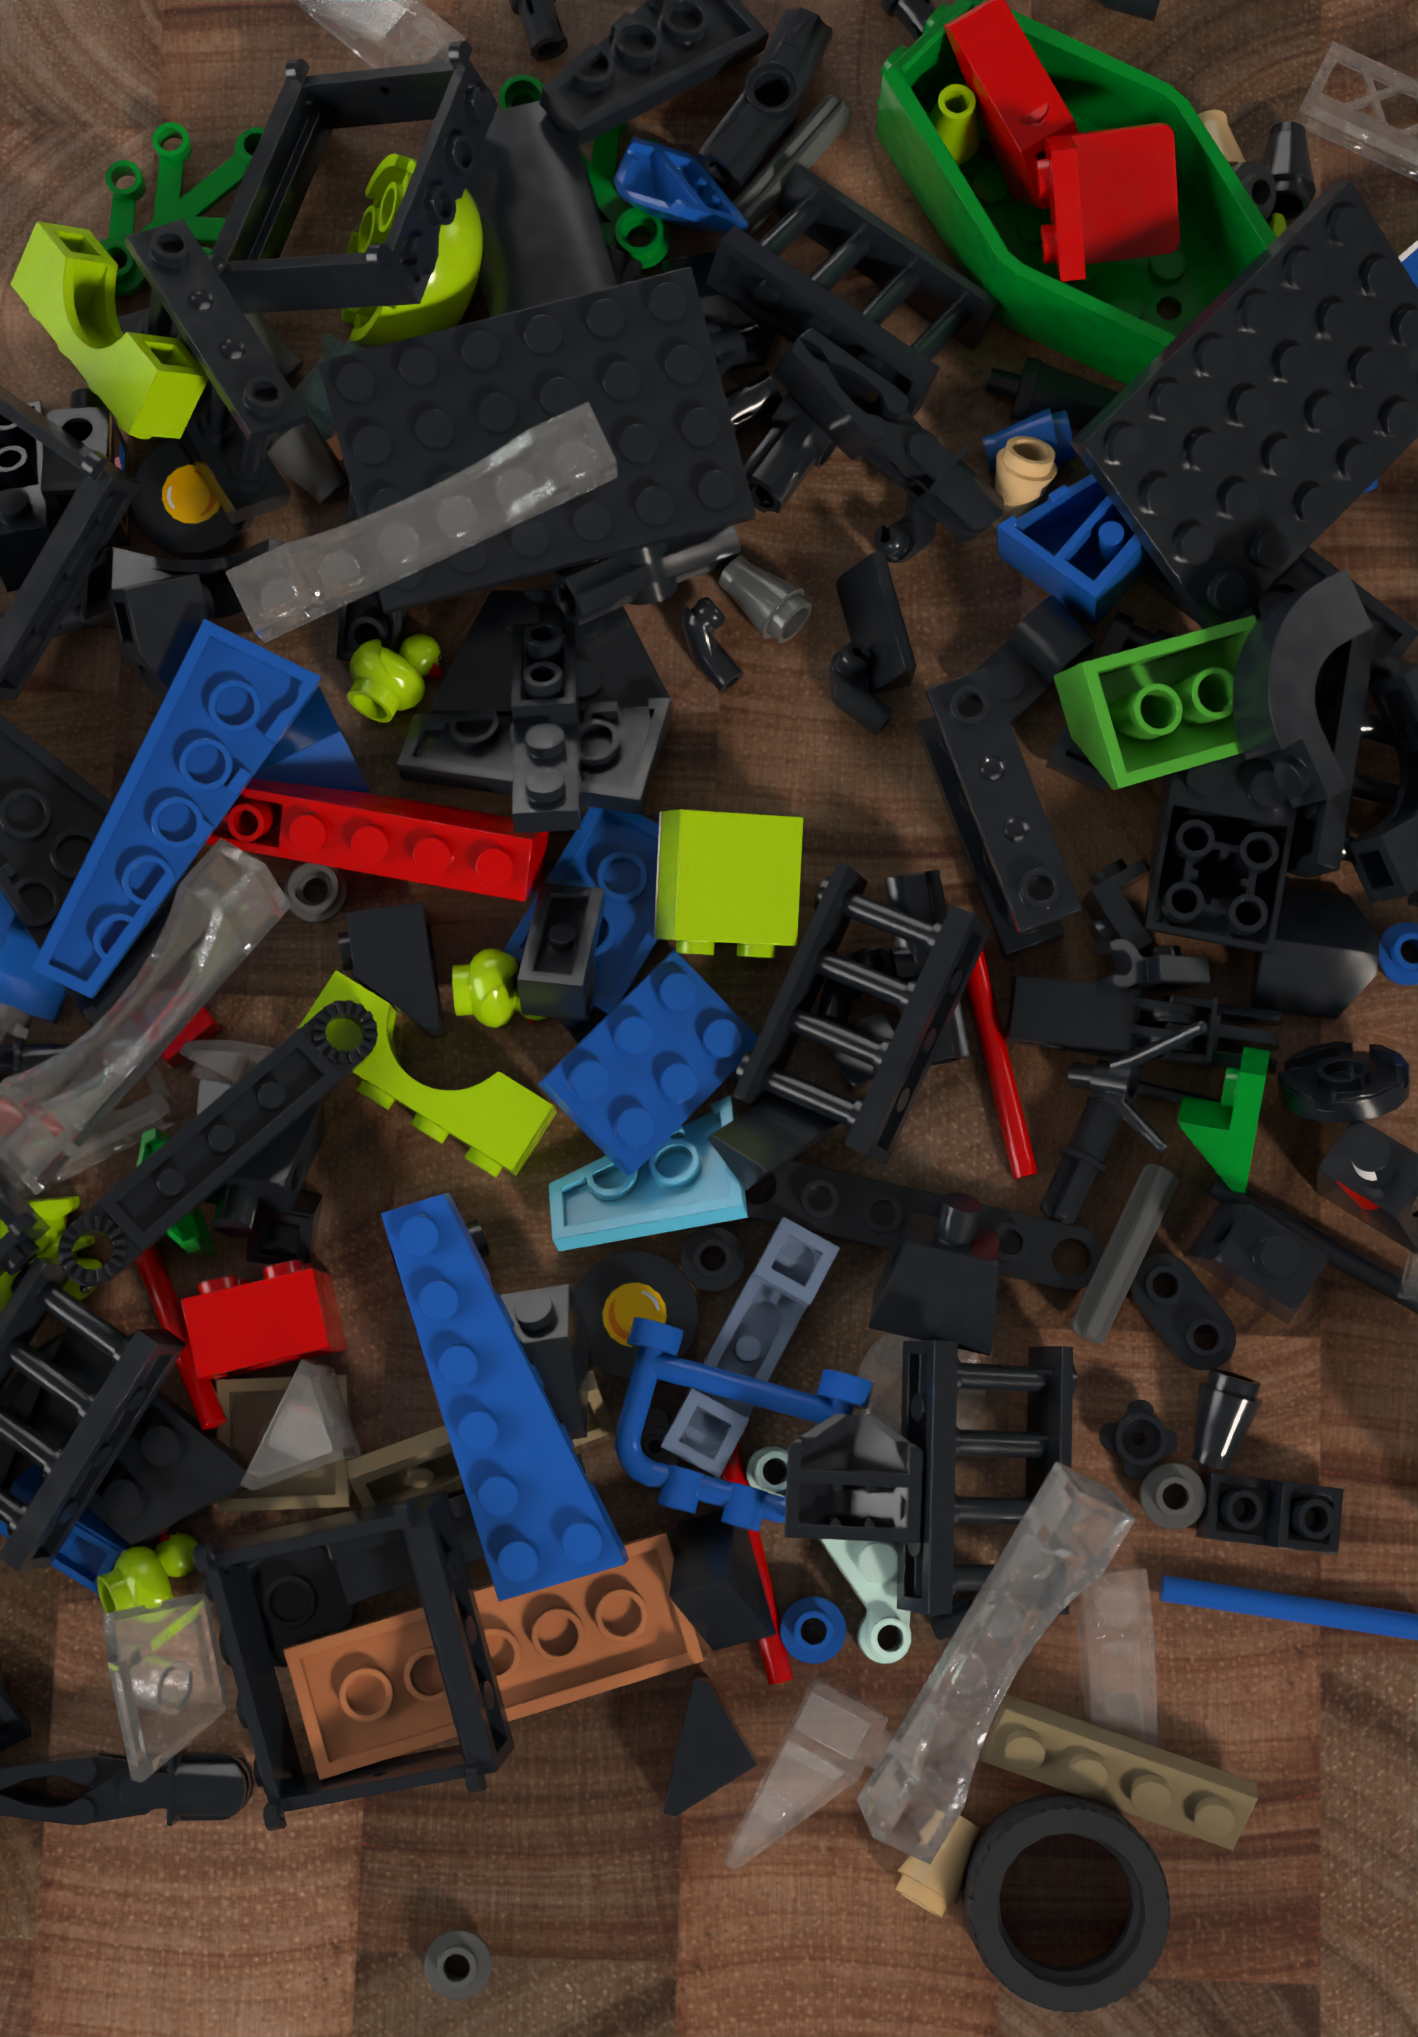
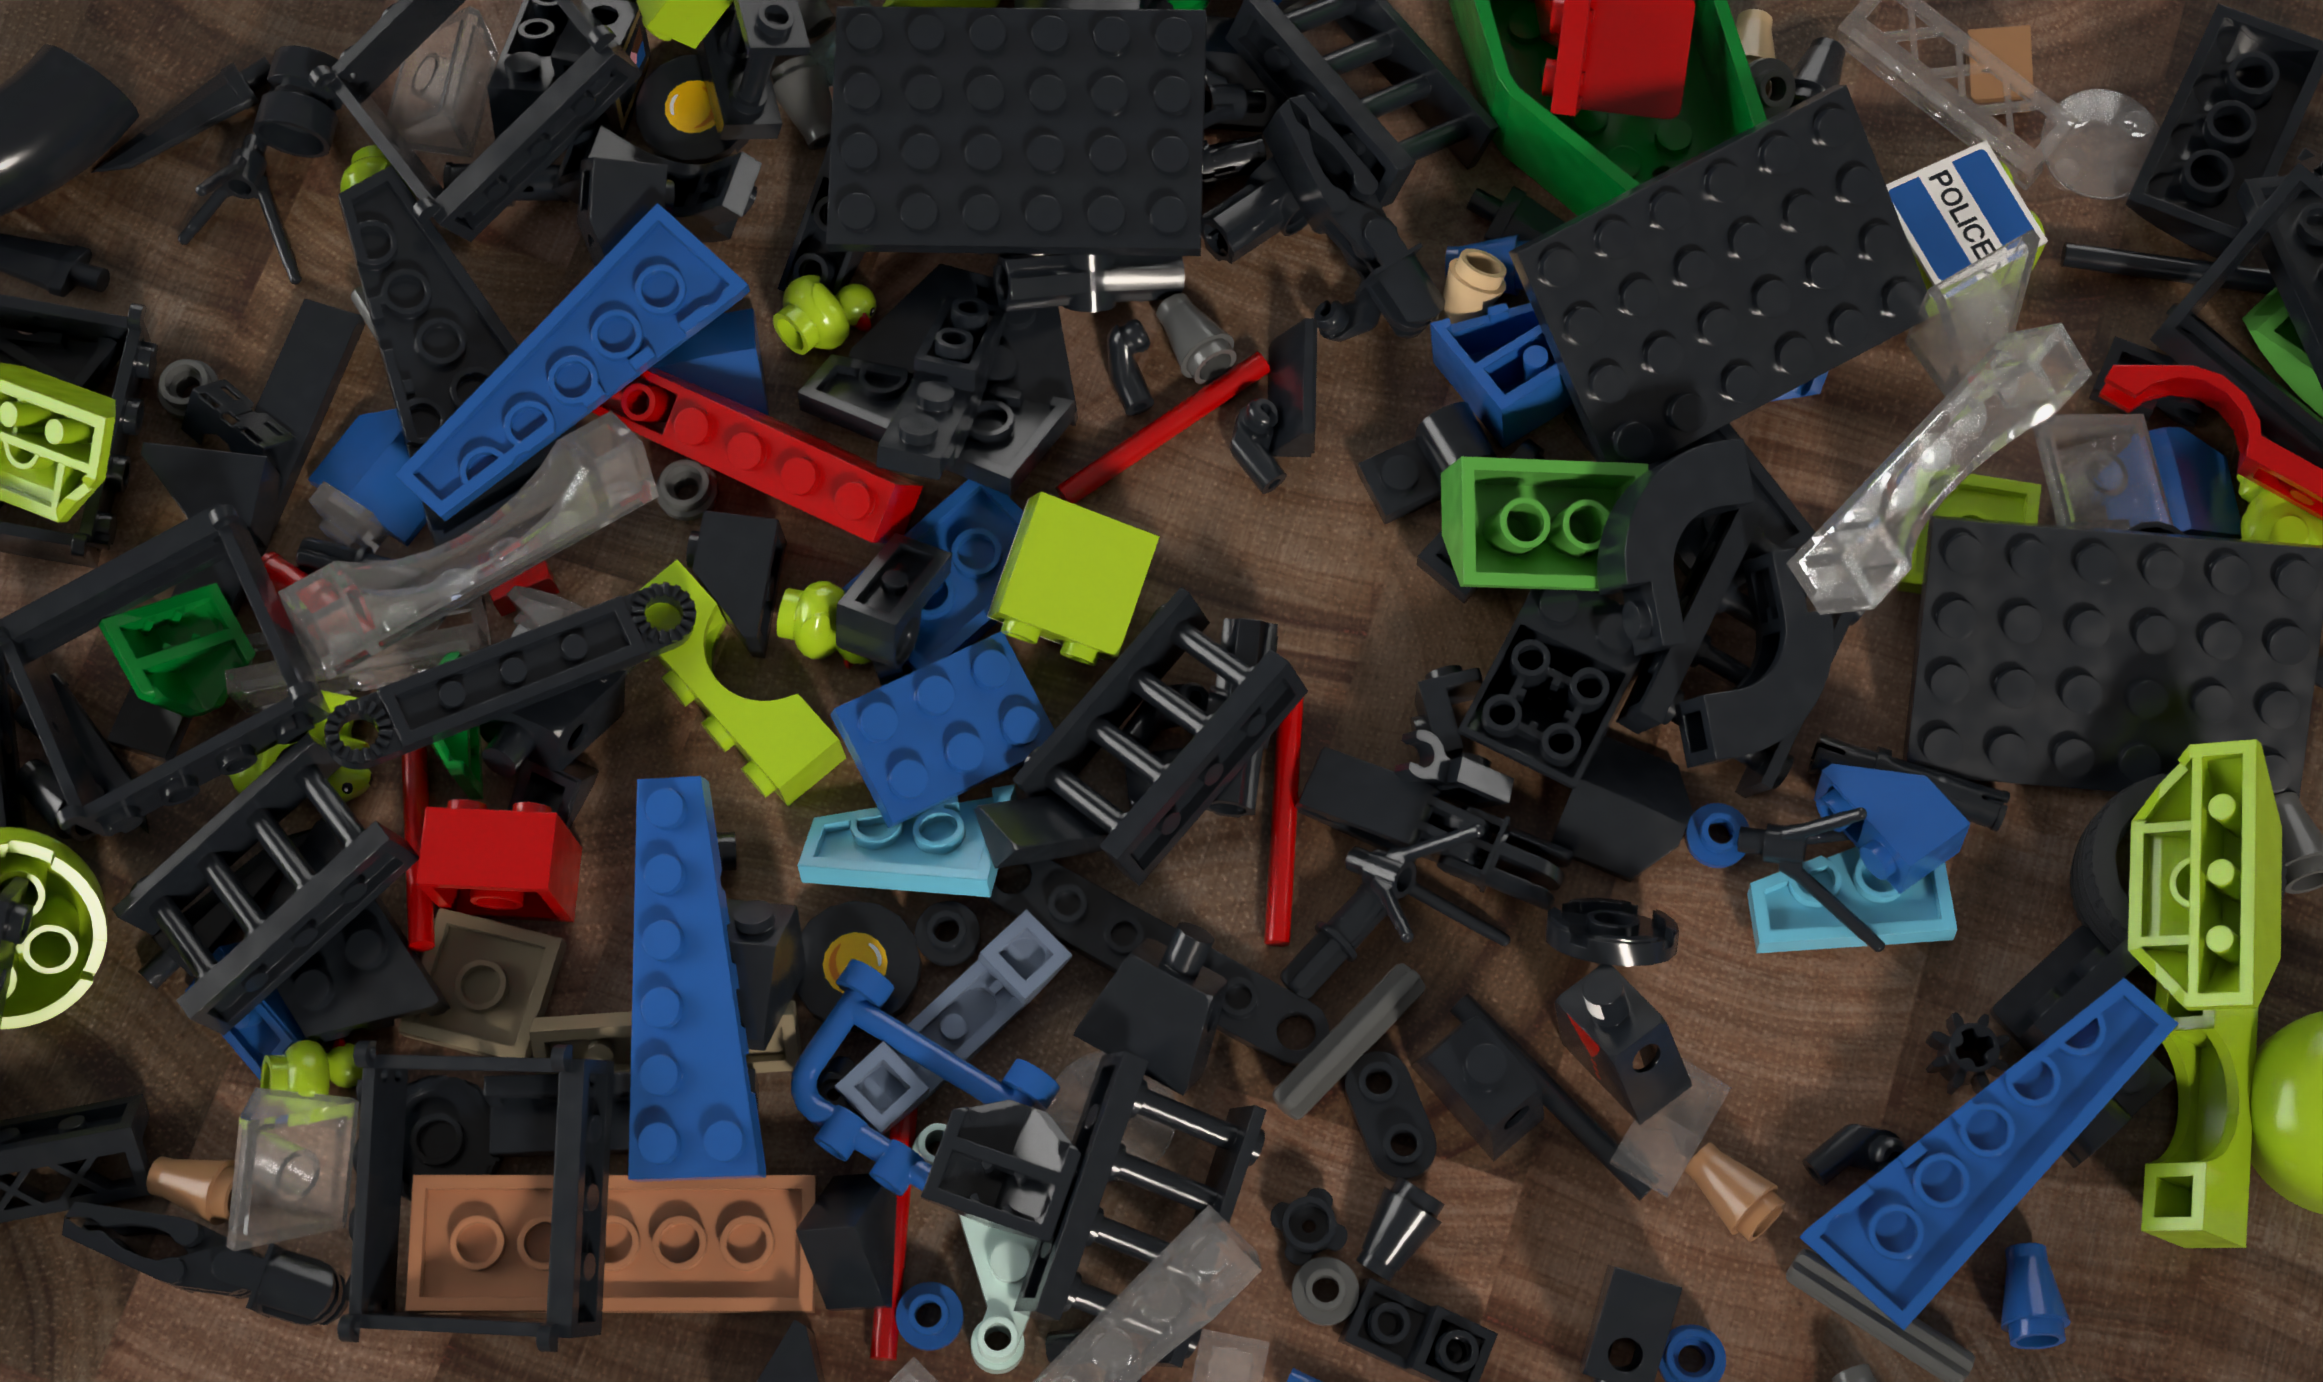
camera: 20 degrees right, 10 degrees down
(75, 1716) = (194, 1185): none -> medium nougat cone
(306, 1431) = (499, 967): clear slope -> none
(367, 554) = (783, 187): clear arch -> none
(761, 698) = (1163, 428): none -> red bar
(996, 813) = (1346, 585): black fence -> none
(1228, 1128) = (1487, 952): green slope -> none

